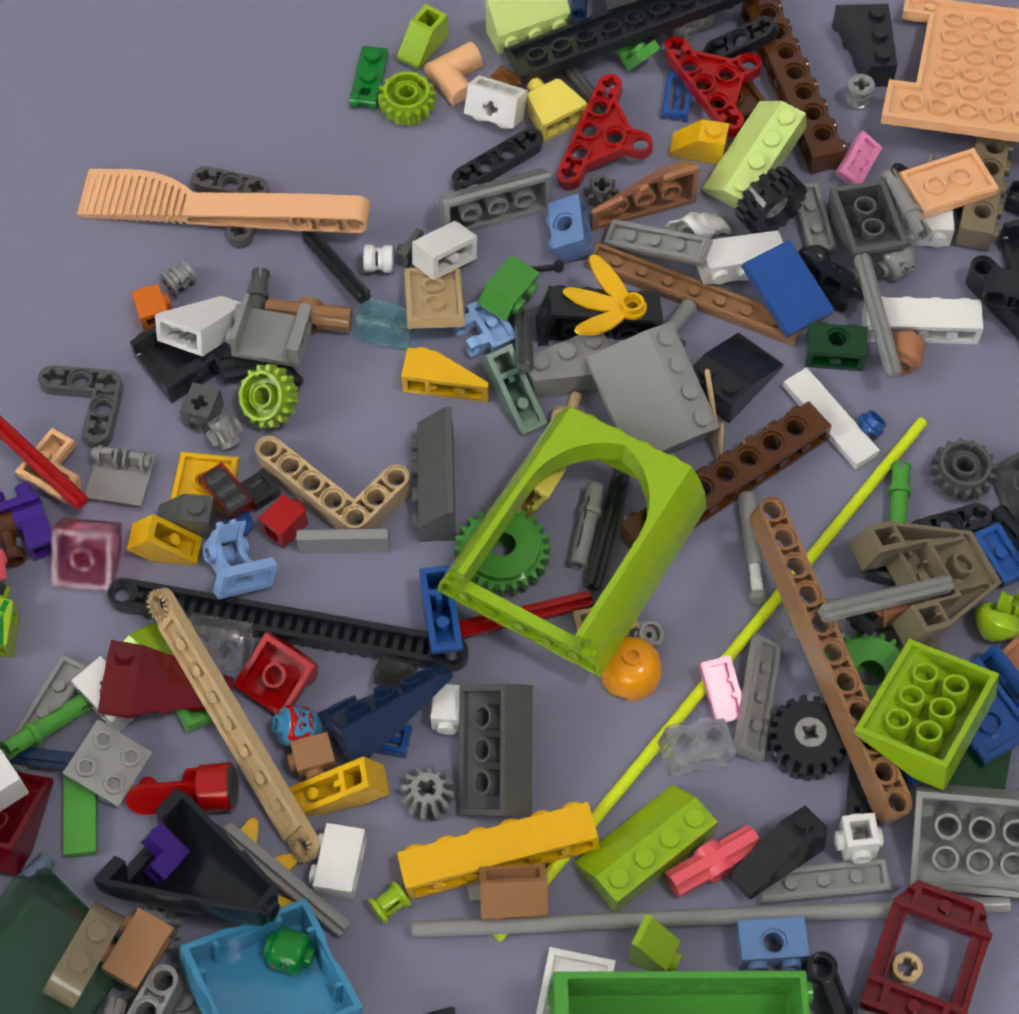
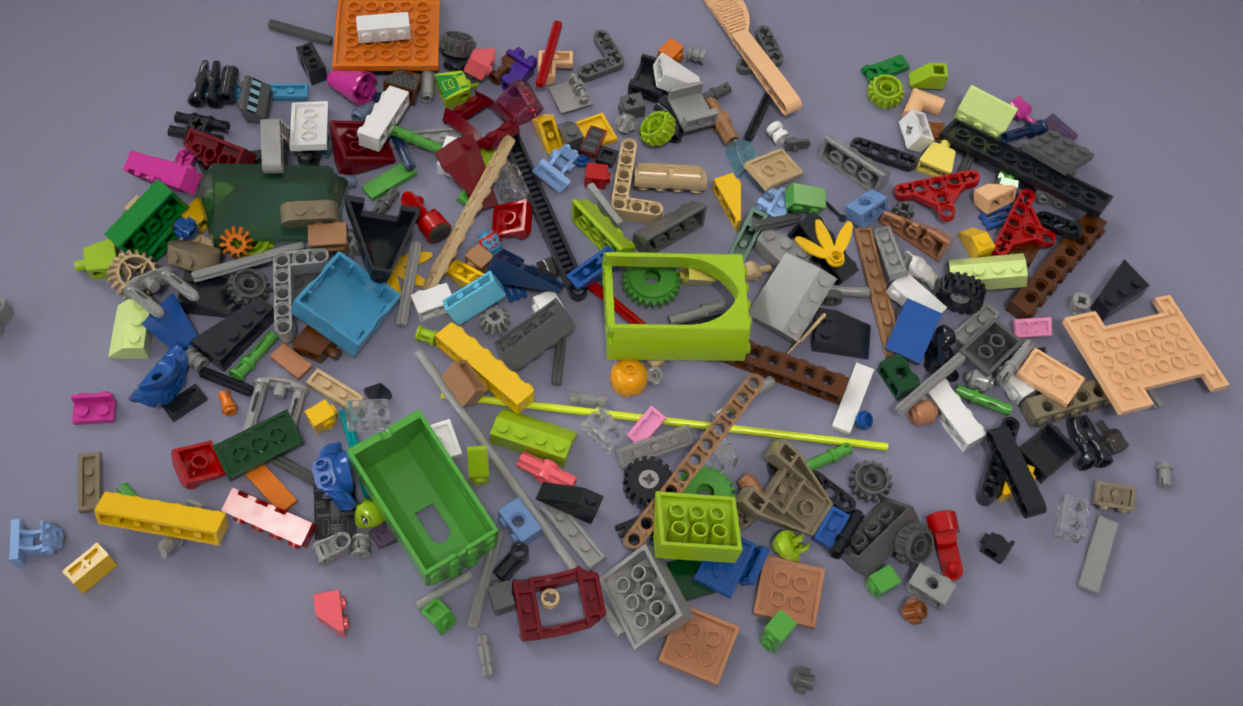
camera: 50 degrees right, 0 degrees up
(39, 618) = (457, 120): none -> dark red wedge
(107, 763) = (416, 174): light grey hinge -> none
(117, 835) = (384, 203): none -> dark grey pin
(167, 851) = (387, 223): dark purple piece -> none
(289, 951) = (371, 303): green head -> none
(355, 427) = (670, 177): none -> tan container
(379, 566) = (599, 227): none -> lime slope
(386, 797) = (474, 298): none -> medium azure brick
(444, 250) = (805, 157): white brick -> none
(556, 751) = (558, 363): none -> dark grey axle
(630, 740) = (588, 398): none -> light grey axle
(650, 82) = (993, 197): none -> light nougat slope
(858, 838) = (605, 534): white brick -> none
(865, 622) = (734, 471): black plate -> none
(885, 598) = (748, 471): light grey axle -> none
(914, 281) = (975, 396): none -> bright green pin

